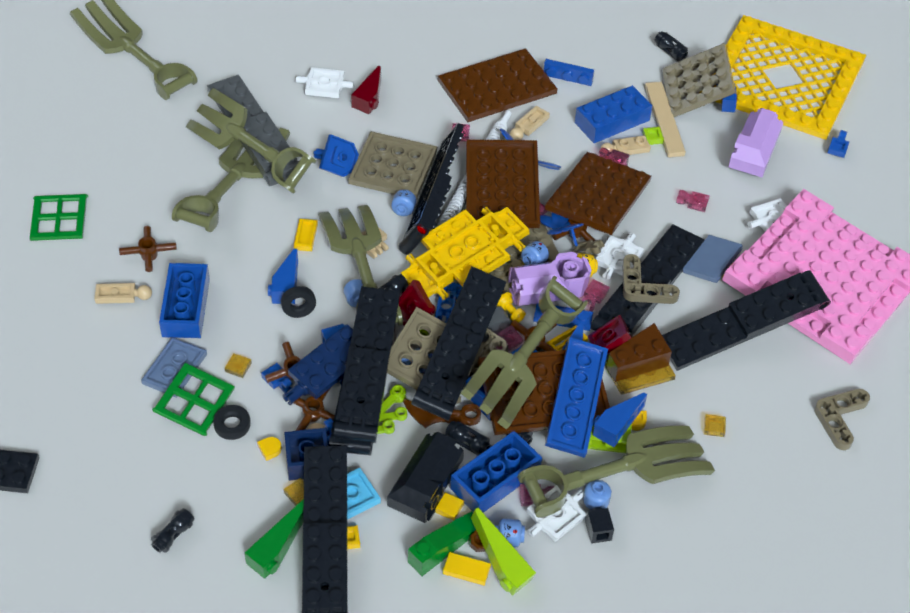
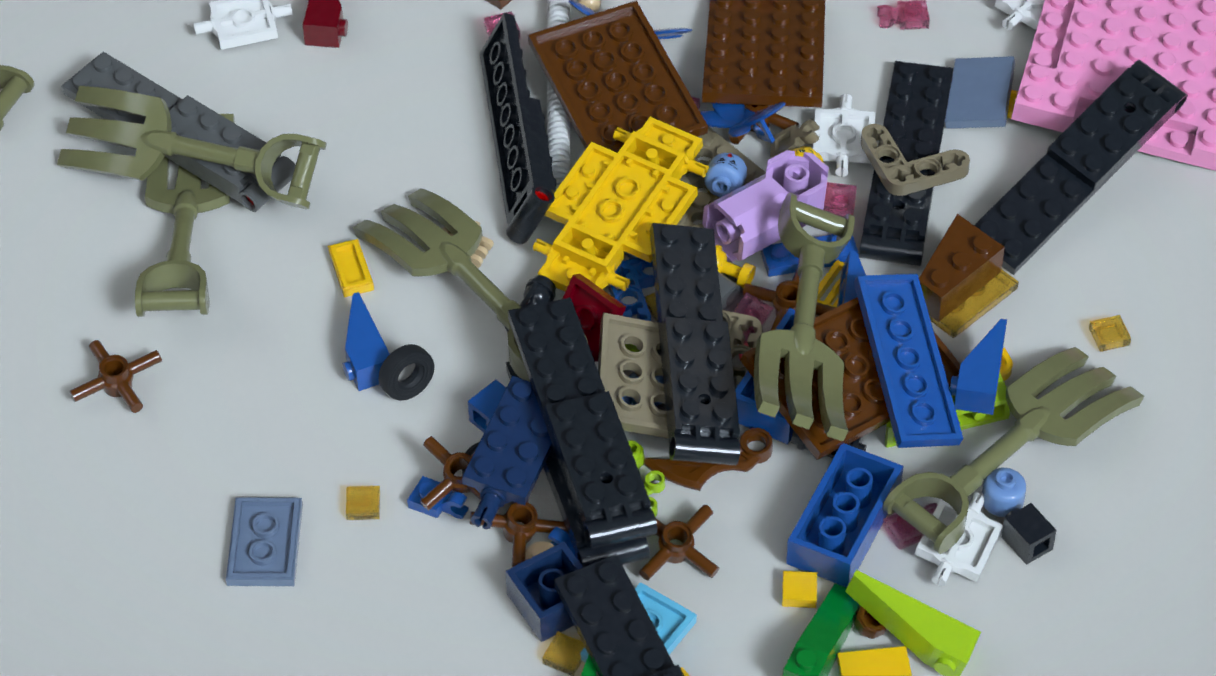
camera: 20 degrees left, 0 degrees up
(121, 293) = (112, 459): tan plate -> none
(184, 300) = (227, 433): blue brick -> none
(193, 399) = (327, 577): green window -> none
(235, 432) = (409, 607): black tyre -> none
(269, 447) = (484, 605): yellow tile -> none
(338, 156) = (340, 125): blue piece -> none
(352, 291) = (483, 328): medium blue head -> none
(391, 445) = (678, 553): none -> reddish brown bar
(403, 202) = (478, 166): medium blue head -> none
(409, 149) = (442, 122): dark tan piece -> none
(426, 477) = (749, 556): black brick -> none
(459, 432) = (756, 479): black piece -> none
(512, 530) = (914, 584): medium blue head -> none
(611, 334) = (901, 252): dark red tile -> none

